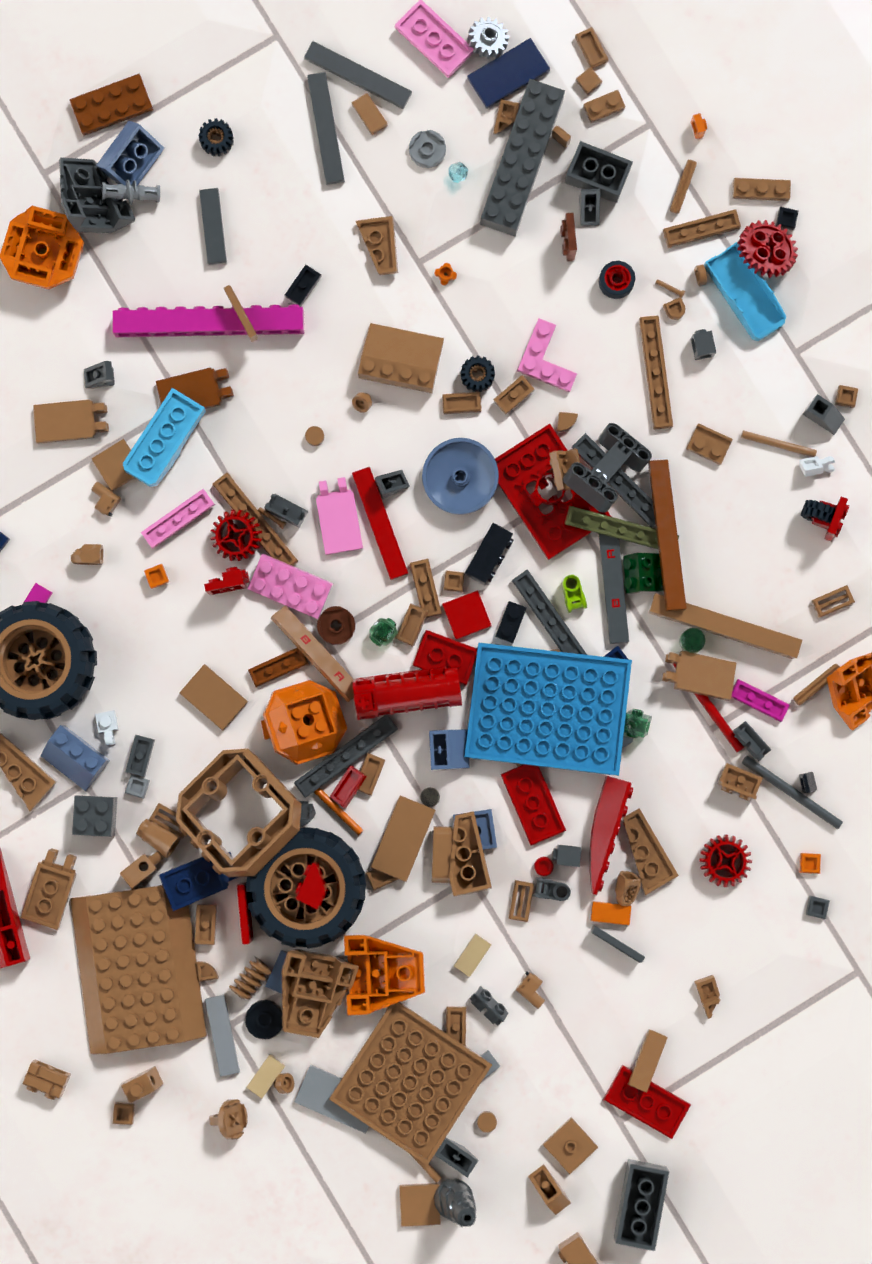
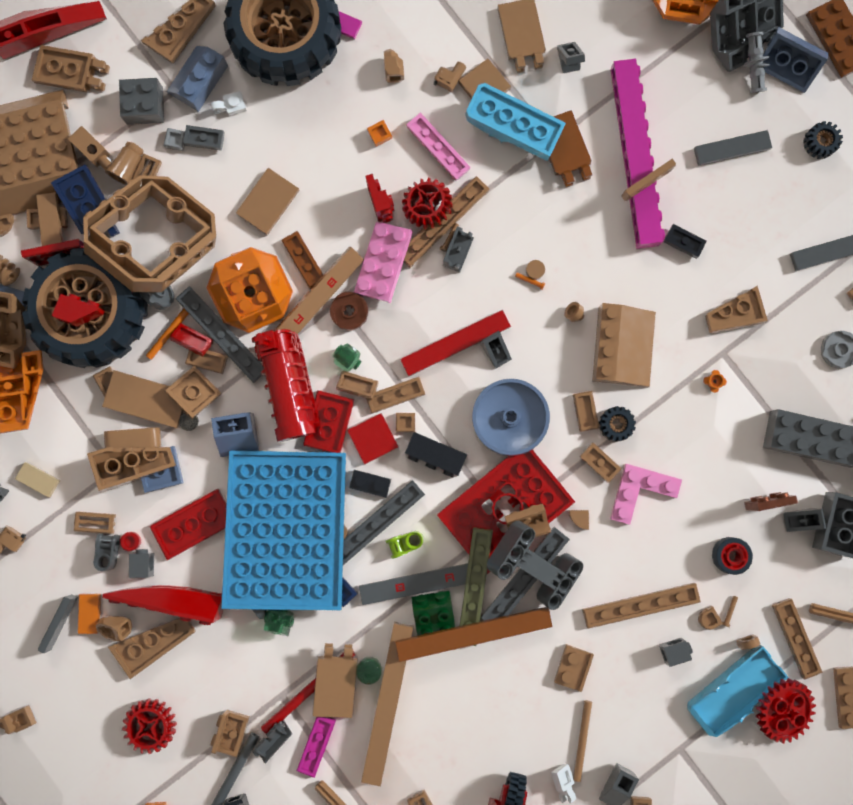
camera: 85 degrees right, 0 degrees up
(210, 919) = (49, 218): none -> medium nougat tile
(325, 441) = (529, 280): none -> orange piece
(338, 519) = (455, 302): bright pink tile -> none
(402, 789) = (193, 392): none -> medium nougat tile
(458, 172) = (821, 382): clear light blue tile -> none
(787, 218) = (820, 727): black tile -> none

